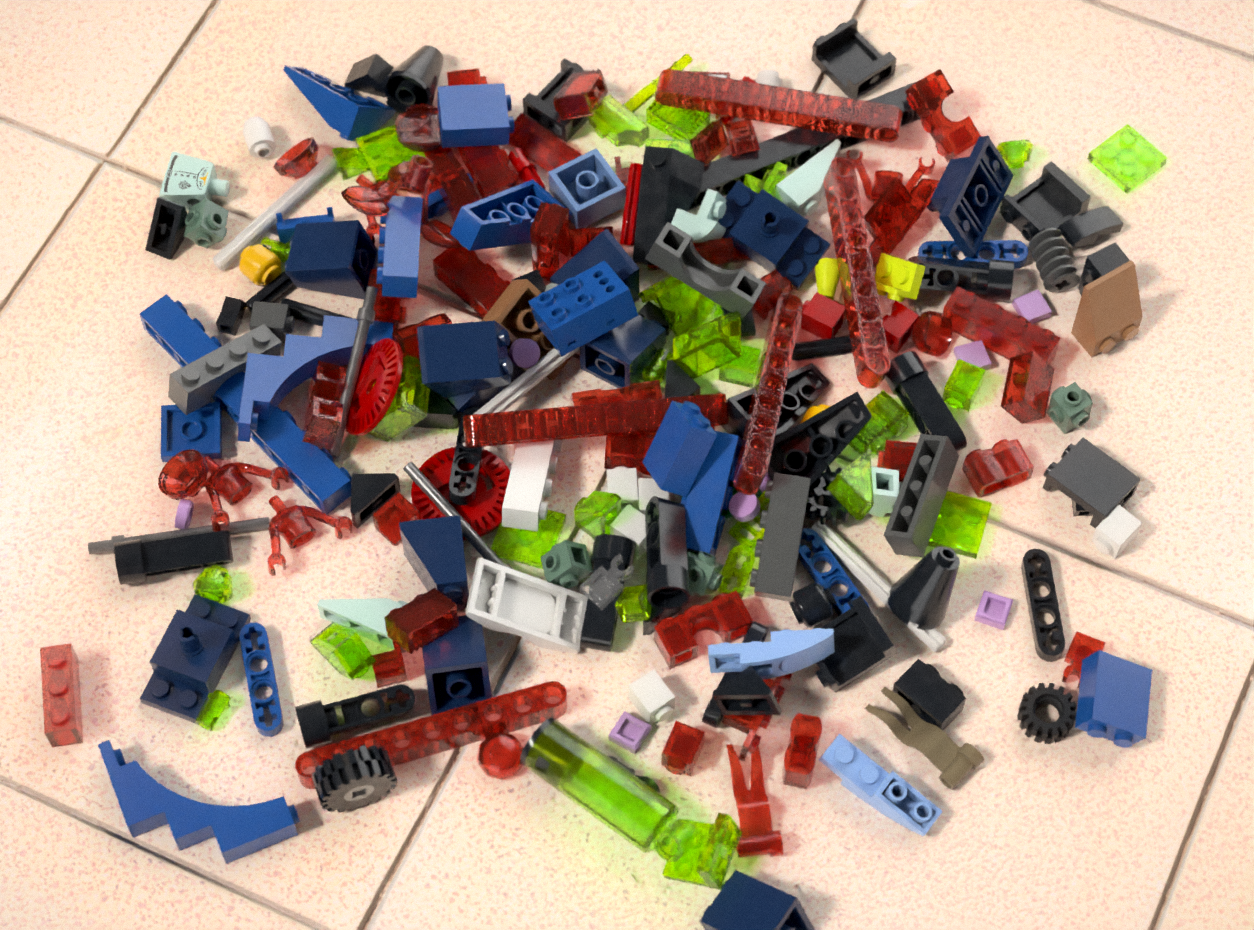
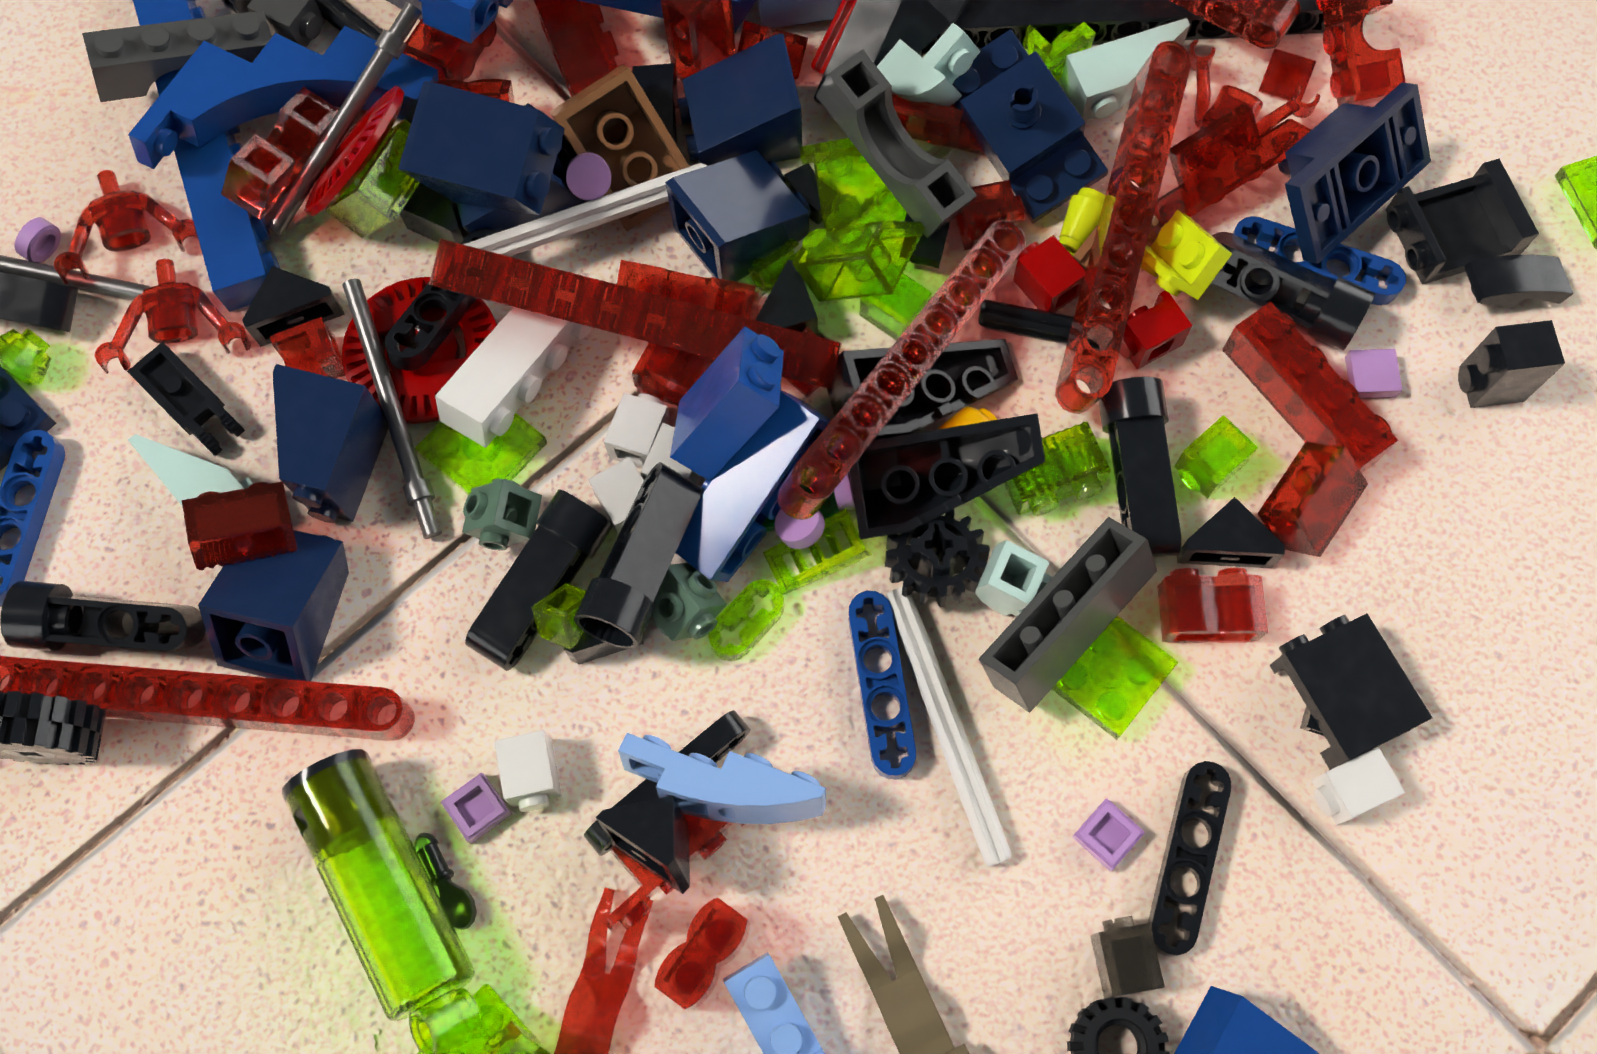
camera: 25 degrees right, 10 degrees up
(180, 471) = (61, 187): clear red piece -> none
(194, 431) = (98, 132): blue plate -> none
(330, 572) = (182, 395): none -> black hinge
(343, 650) = (137, 522): clear neon green slope -> none
(389, 667) = (182, 574): clear red panel -> none
(500, 755) = (270, 763): clear red hair -> none
(526, 607) = (407, 554): white slope -> none
(583, 308) = (685, 138): blue piece -> none
(597, 512) = (581, 454): clear neon green slope -> none
(604, 584) = (527, 571): clear plate -> none
(682, 749) = (532, 872): clear red brick -> none
(723, 615) = (610, 686): clear red arch -> none
(781, 537) = (827, 596): dark grey brick -> none
(812, 605) = (830, 720): black head -> none
(854, 487) = (969, 561): clear neon green slope -> none
(858, 647) = (866, 813): black panel -> none
(896, 456) = (1060, 534): clear red brick -> none
(908, 152) = (1285, 74): none -> clear red slope
(926, 589) = (1006, 771): black cone -> none
(930, 694) = (944, 940): black brick -> none
(932, 333) = (1202, 360): clear red hair -> none
(974, 354) = (1251, 415): lavender tile -> none
(992, 426) = (1233, 539): none -> black slope
(1015, 152) = (1449, 128): clear neon green cone -> none
(1032, 665) = (1126, 957): none -> clear smoke brick
(1053, 261) = (1437, 313): dark grey piece -> none
(1069, 407) = (1367, 554): sand green brick -> none
(1080, 648) = (1217, 964): clear red plate -> none
(1108, 310) = (1495, 424): medium nougat slope -> none

